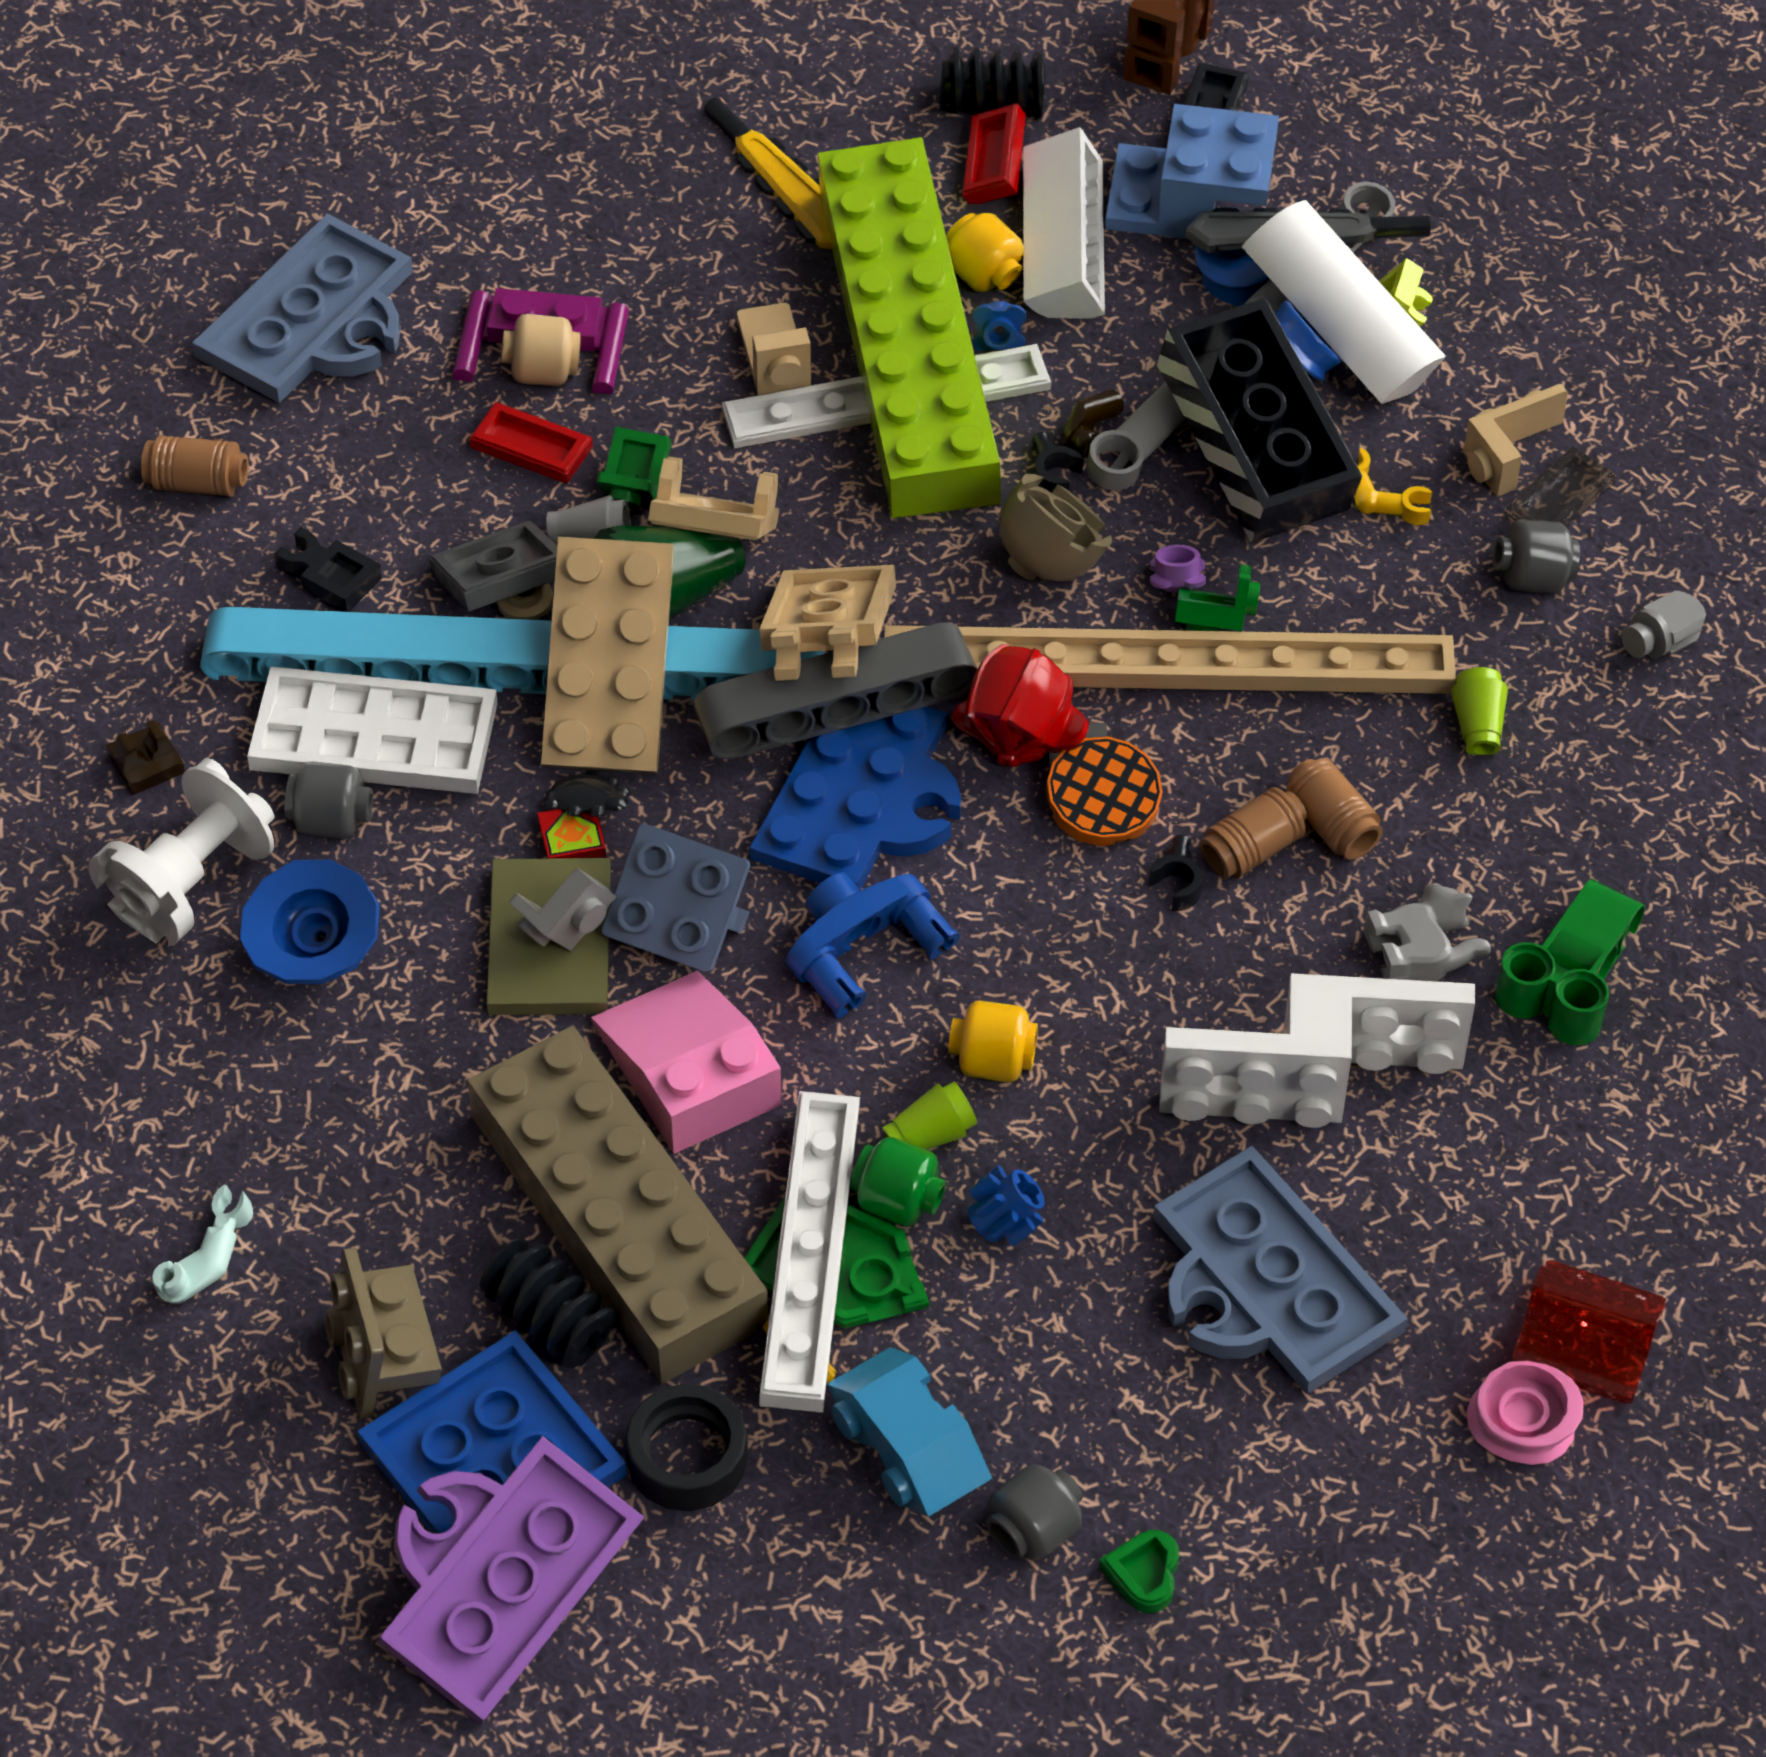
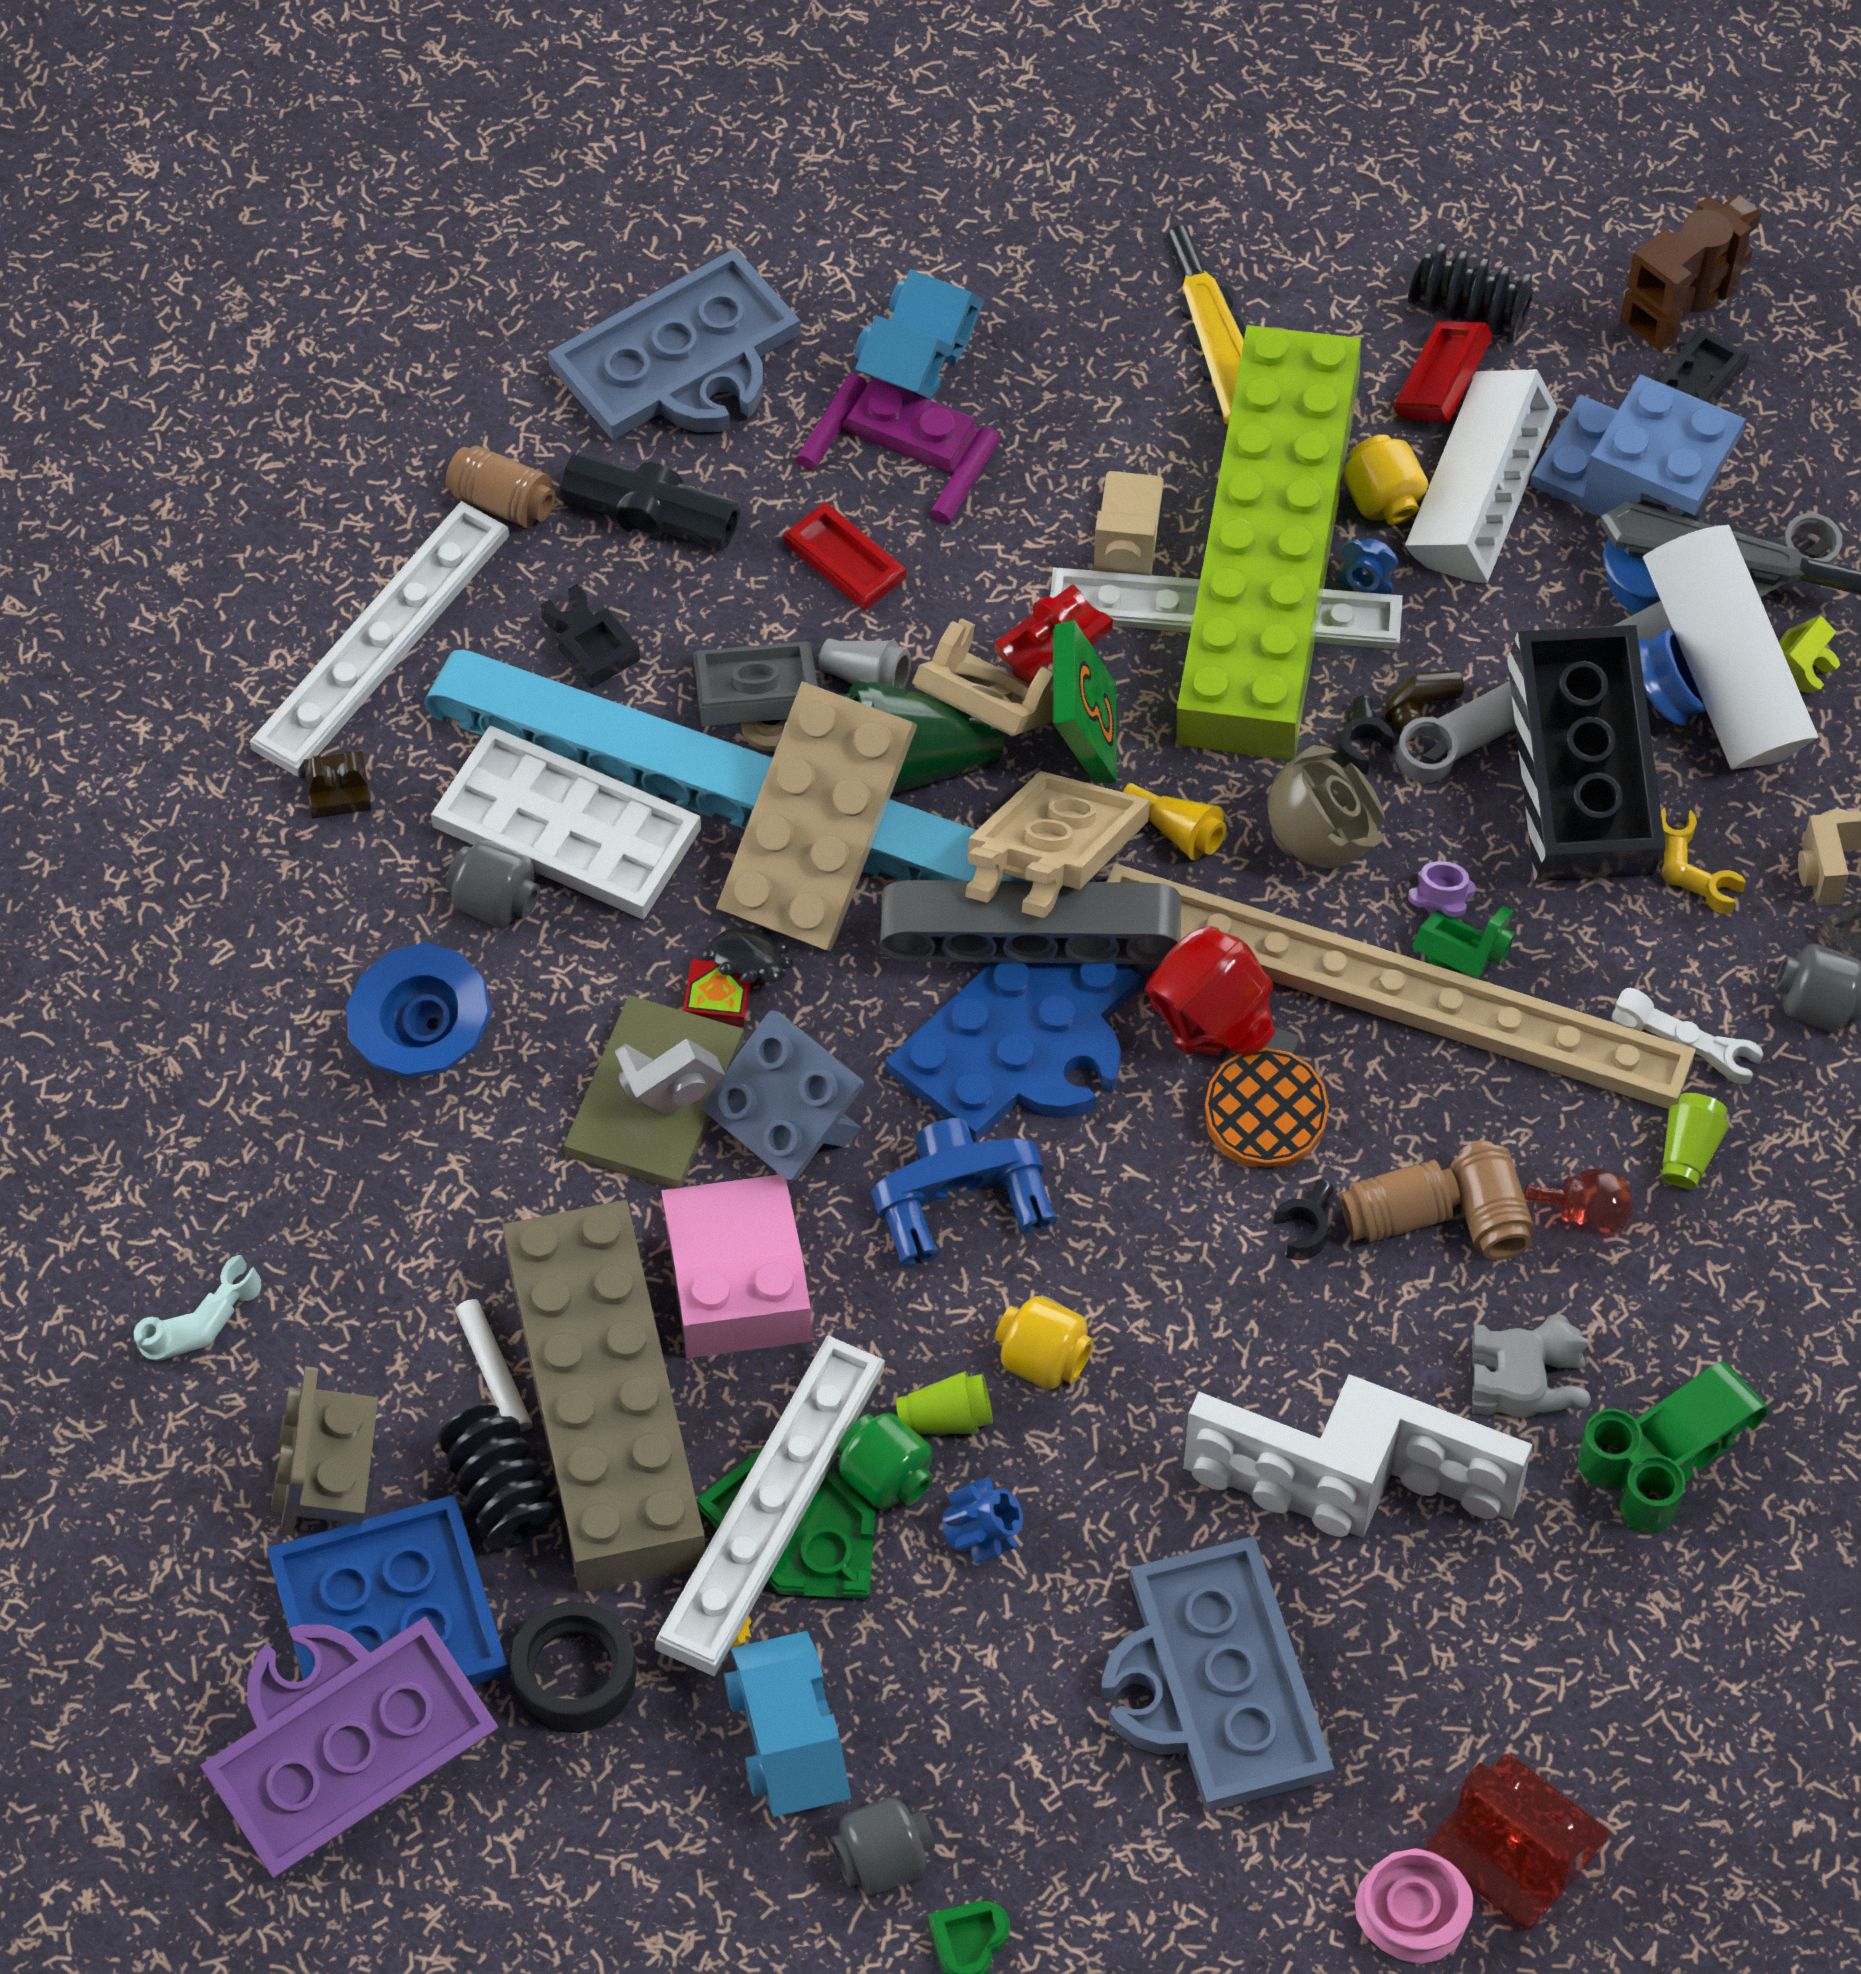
camera: 20 degrees right, 5 degrees up
(132, 626) = (379, 638): none -> white tile
(153, 881) = (307, 911): white piece -> none
(336, 441) = (650, 500): none -> black piece
(492, 1205) = (492, 1362): none -> white piece
(524, 238) = (926, 329): none -> dark azure brick
(541, 350) = (890, 459): tan head -> none
(634, 466) = (930, 611): green bracket -> none
(751, 447) = (1031, 642): none -> red hips
(804, 498) = (1084, 702): none -> green tile
(932, 577) = (1188, 824): none -> yellow cone
(1386, 619) = (1638, 1012): none -> white piece
(1416, 783) = (1591, 1200): none -> clear red piece

